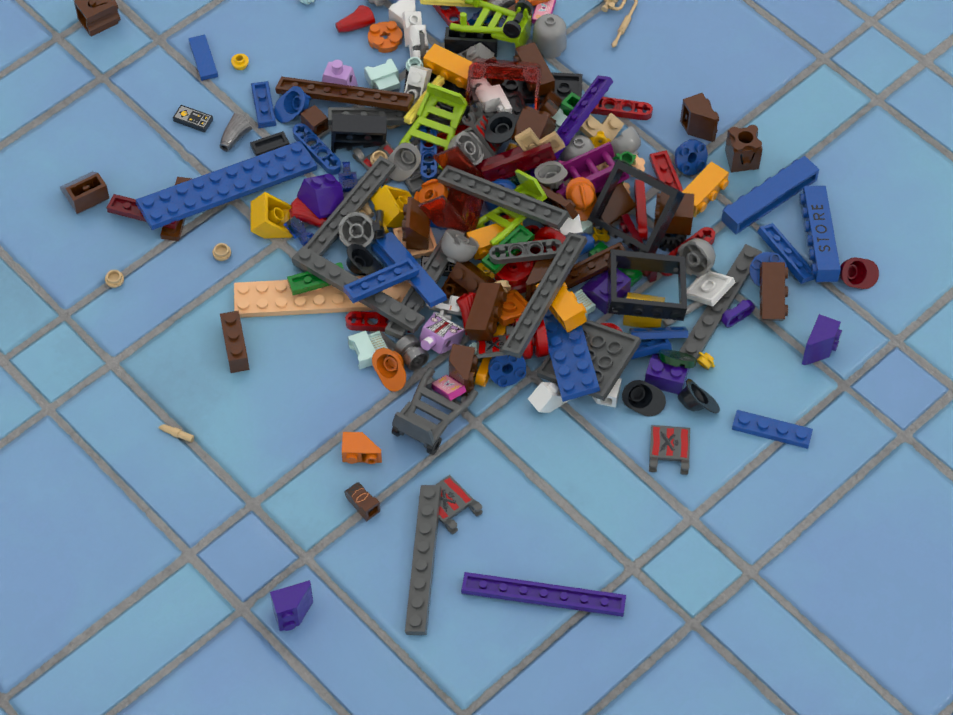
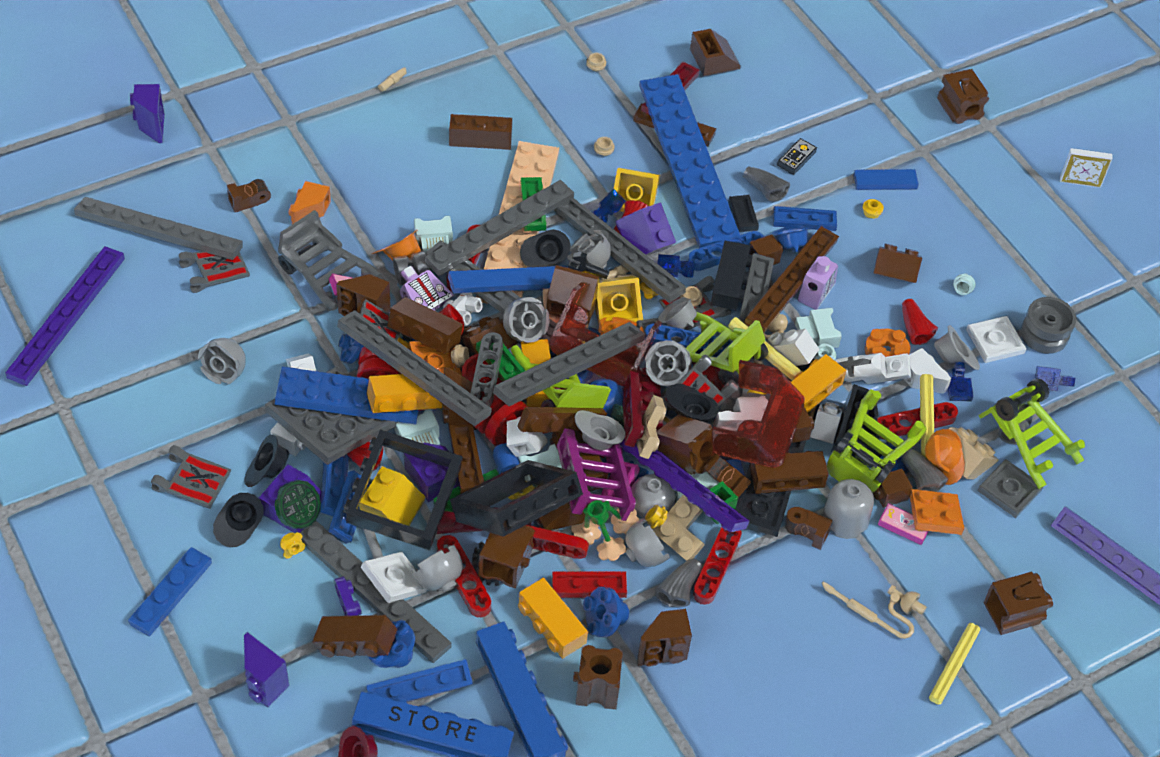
camera: 100 degrees right, 5 degrees down
(299, 36) = (898, 263): none -> reddish brown slope
(381, 280) = (495, 236): blue plate -> none
(554, 455) = (222, 360): none -> light grey cylinder
(569, 54) = (808, 525): none -> reddish brown leg
(583, 195) = (557, 449): orange piece -> none
(645, 124) = (676, 587): none -> flat silver piece

